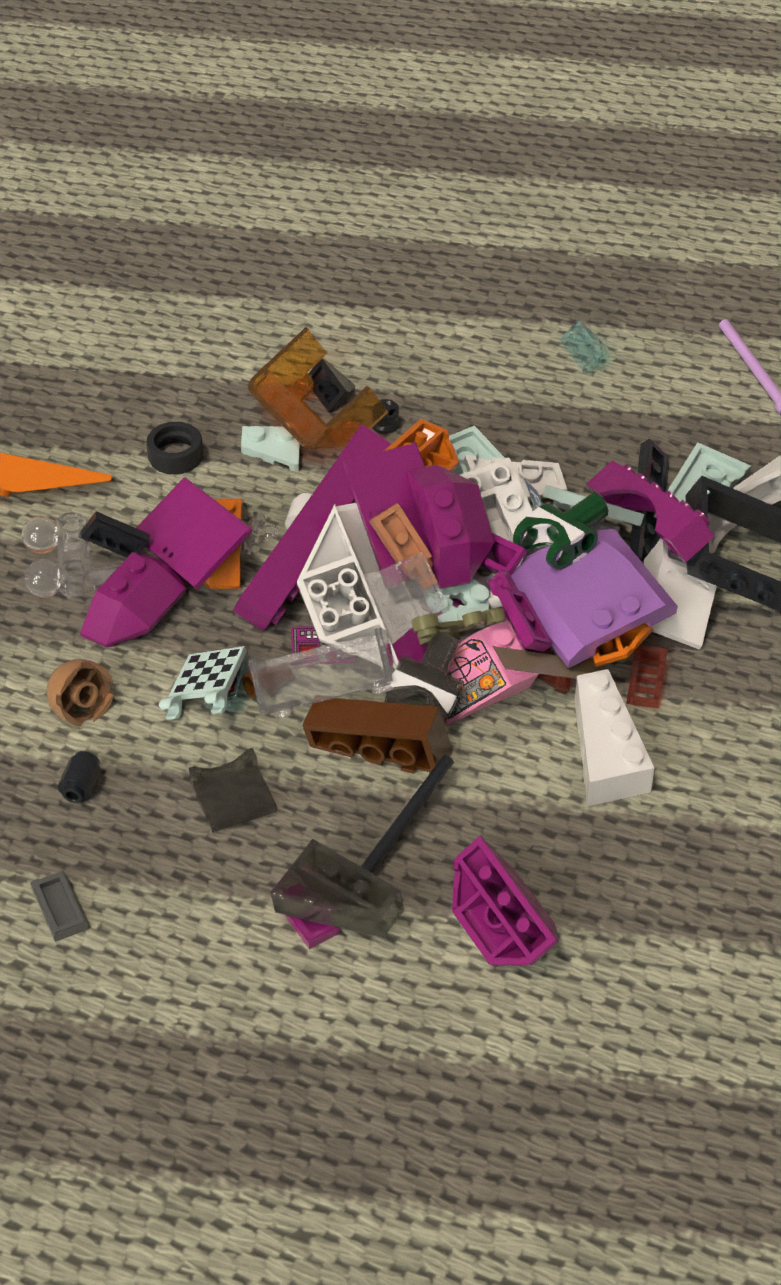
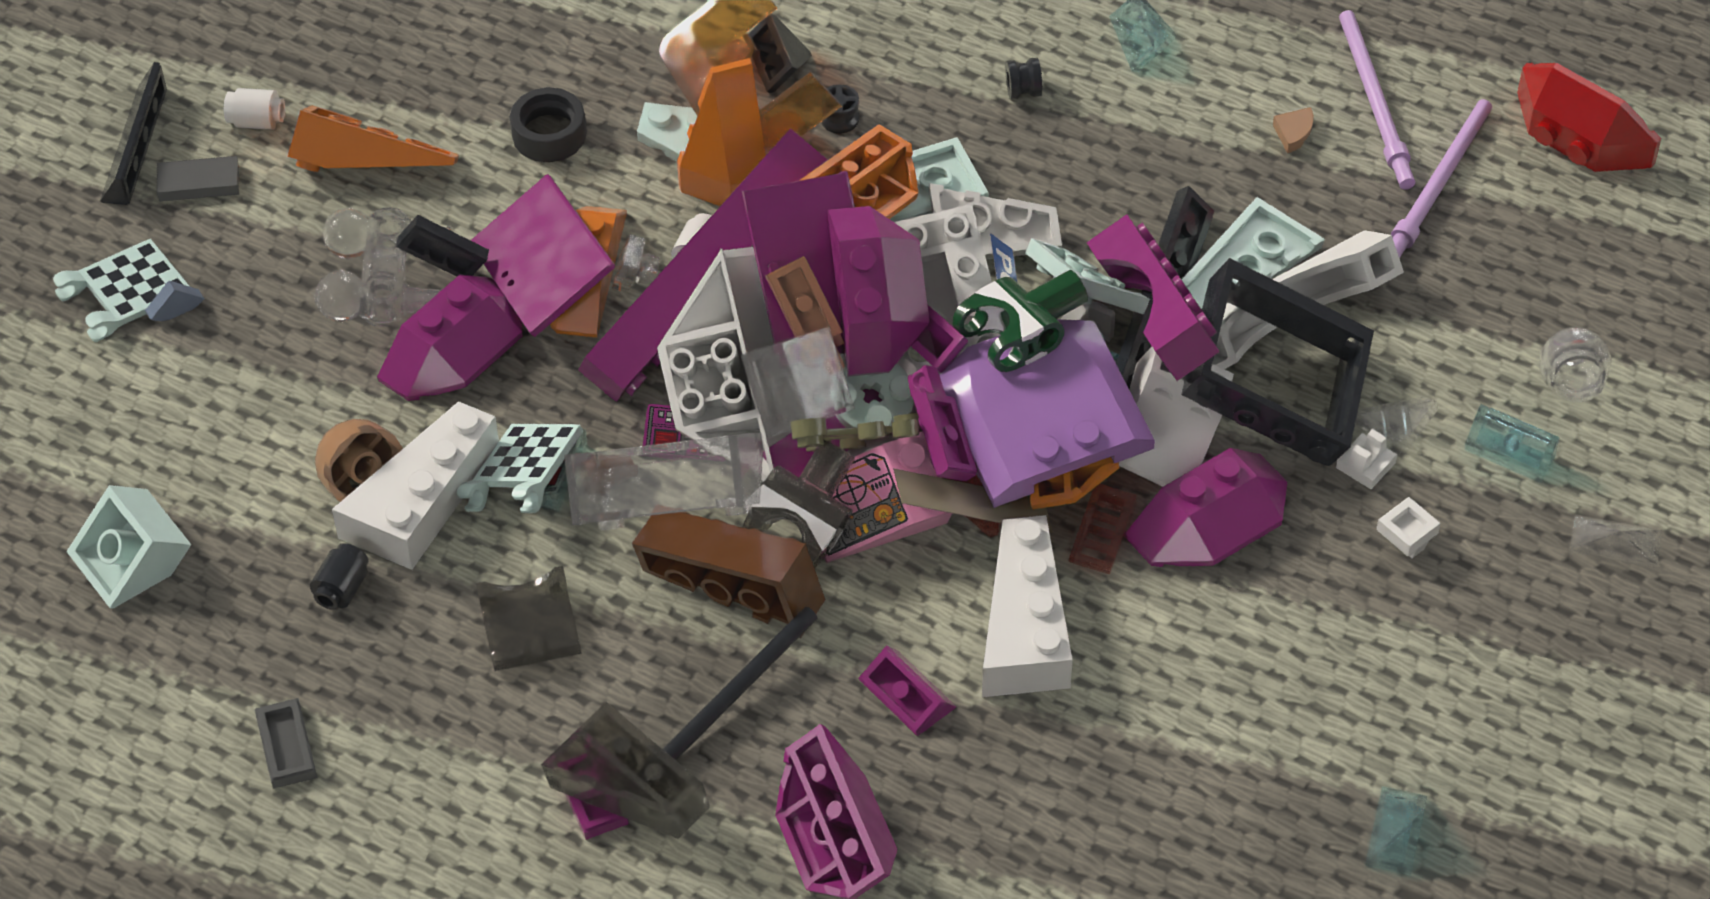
camera: 10 degrees right, 5 degrees up
(128, 707) = (416, 490): none -> white wedge
(313, 438) = (725, 137): none -> orange wedge
(511, 383) = (1023, 78): none -> black wheel
(529, 808) = (905, 691): none -> magenta slope
(708, 397) = (1294, 128): none -> medium nougat tile
(721, 656) = (1211, 511): none -> magenta wedge

